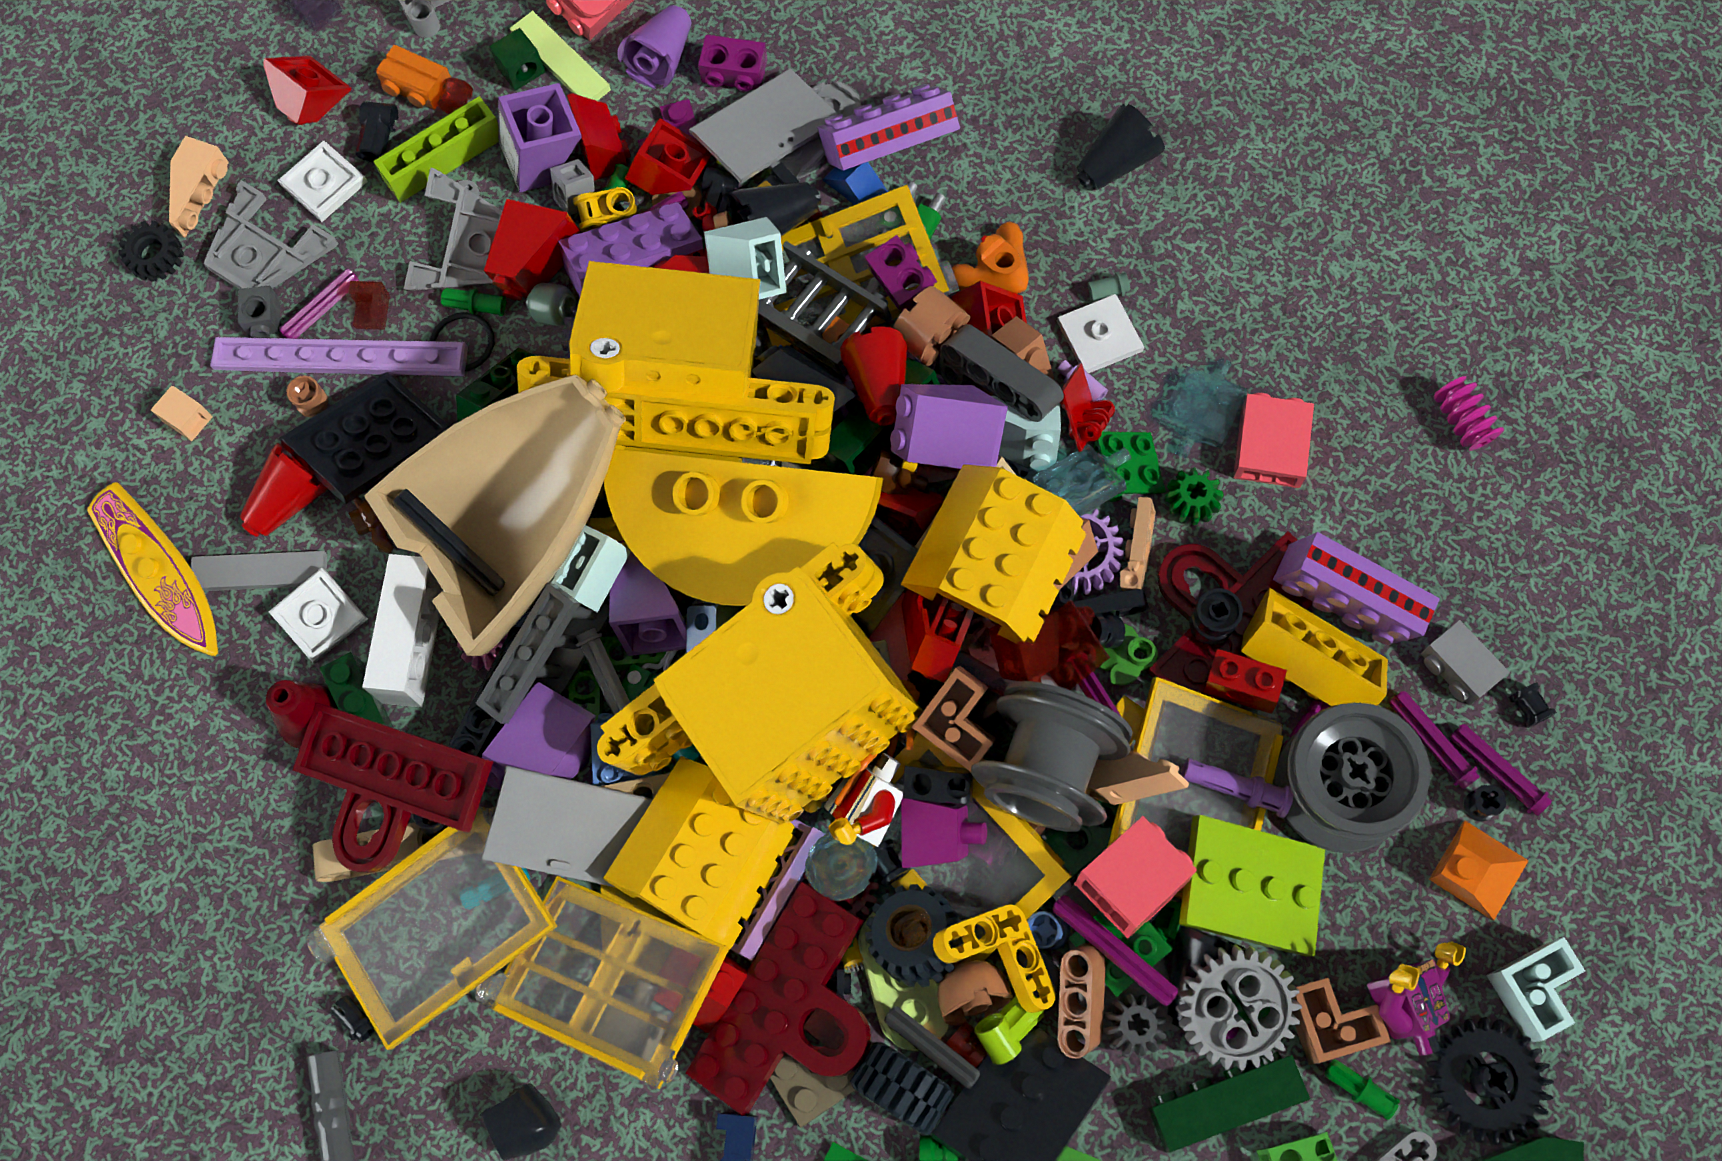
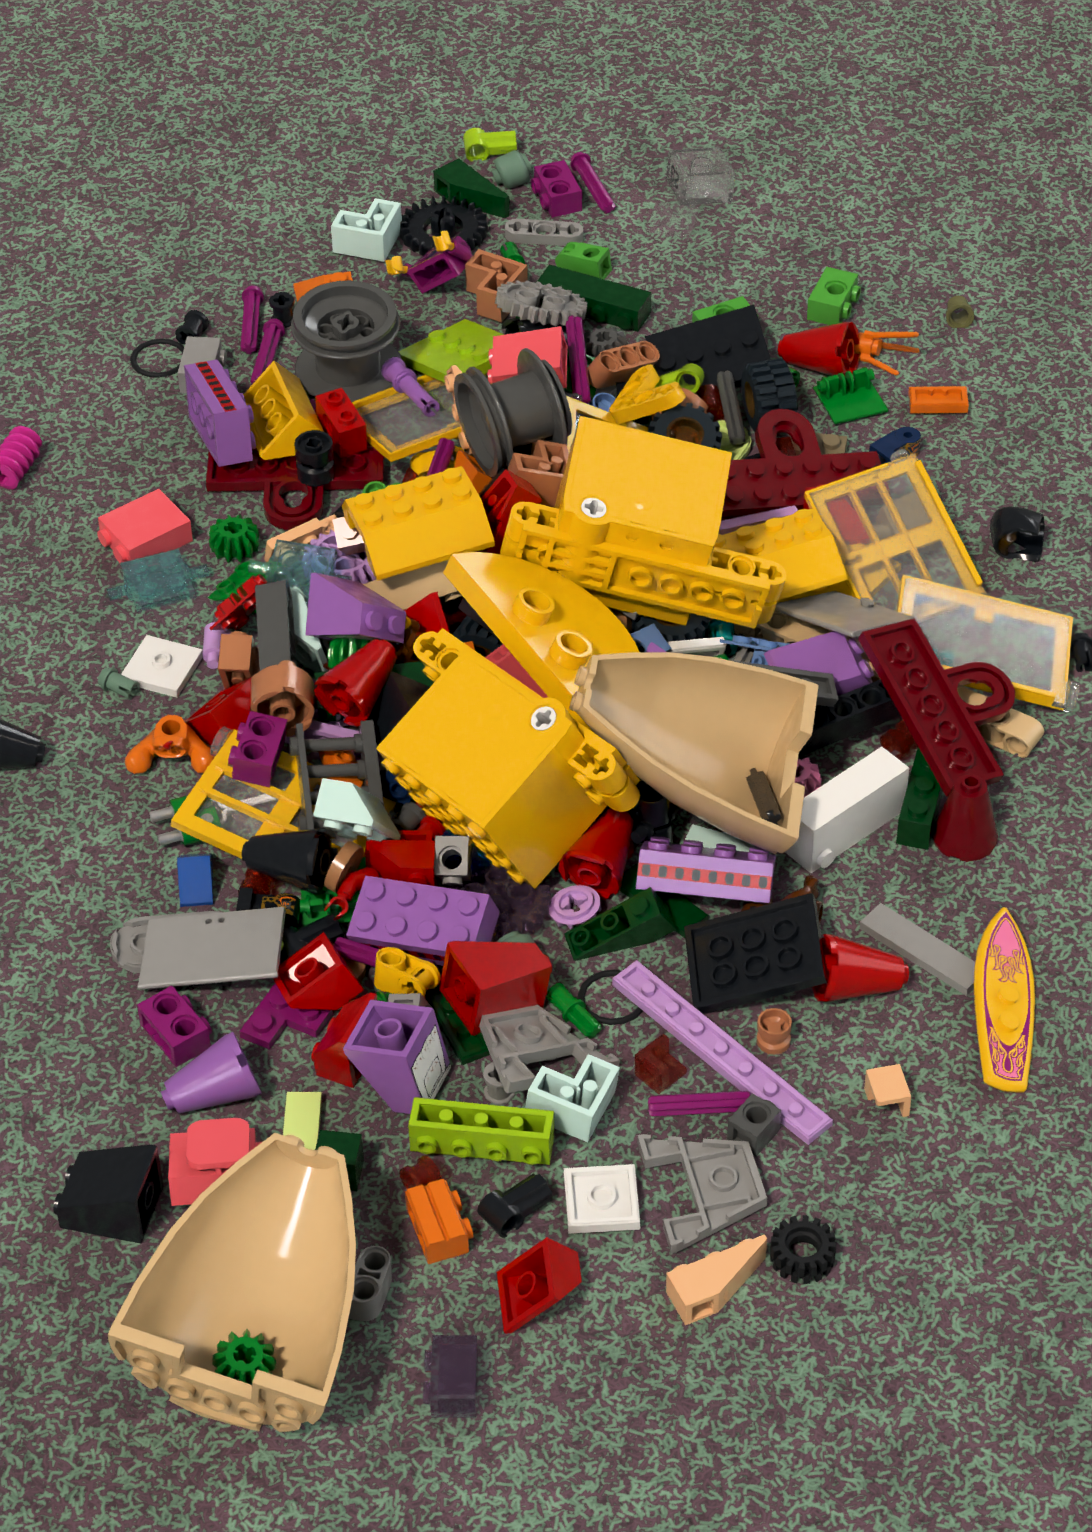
camera: 140 degrees left, 25 degrees down
(318, 615) = (902, 883): white plate -> none
(392, 218) = (576, 1101): none -> light aqua brick
(888, 127) = (133, 865): medium lavender brick -> none
(1549, 643) = (152, 342): none -> black piece

